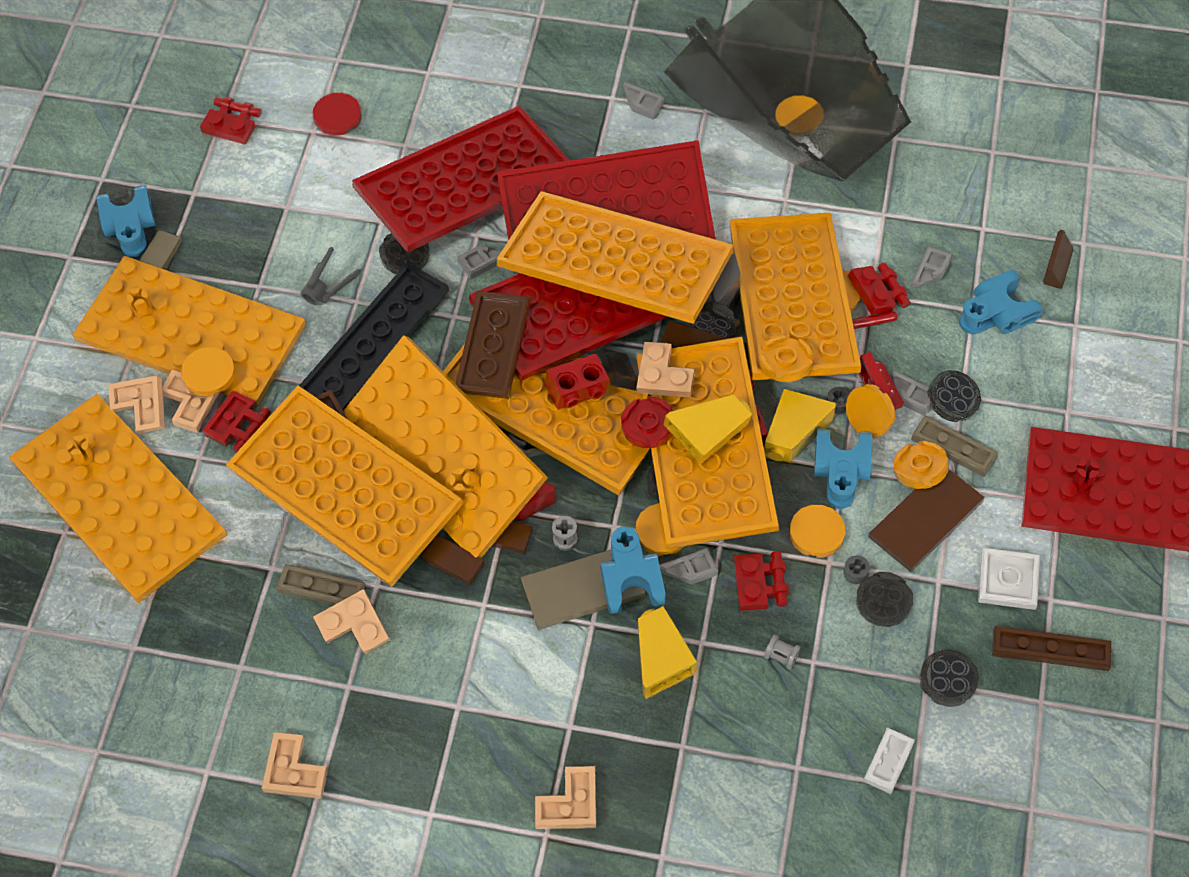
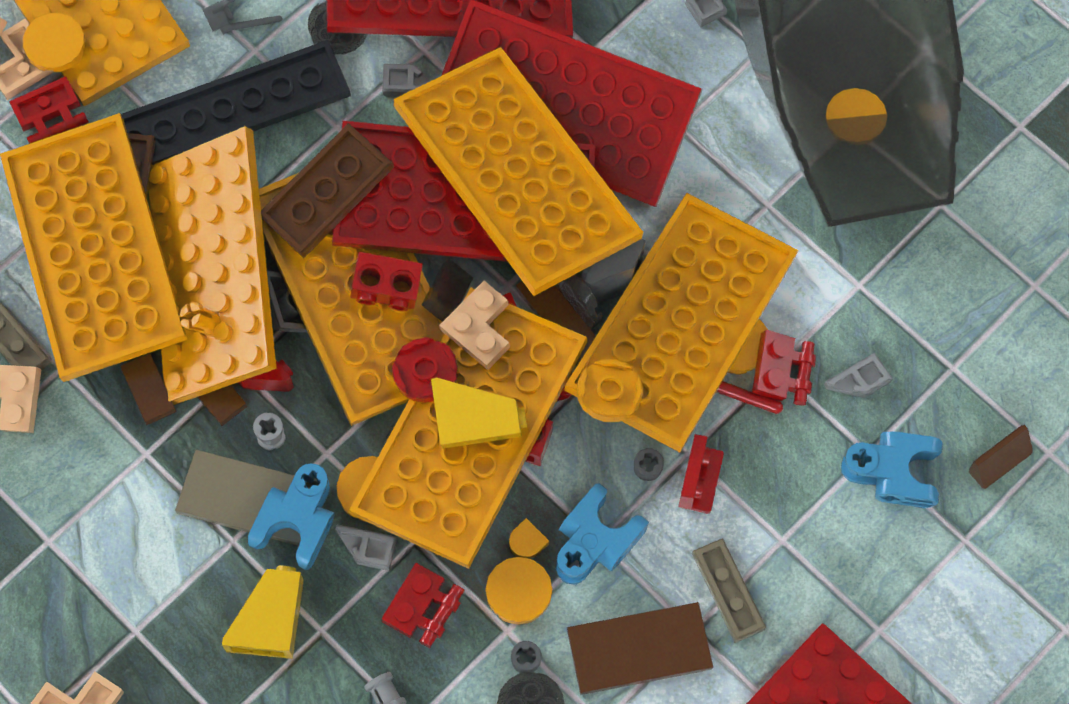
camera: 30 degrees right, 10 degrees up
(796, 424) = (580, 463): yellow slope -> none
(797, 496) = (527, 540): none -> light orange tile
(870, 410) = (662, 499): light orange tile -> none
(912, 393) = (731, 507): light grey tile -> none
(921, 465) = (675, 590): light orange tile -> none
(954, 395) = (768, 537): tile -> none

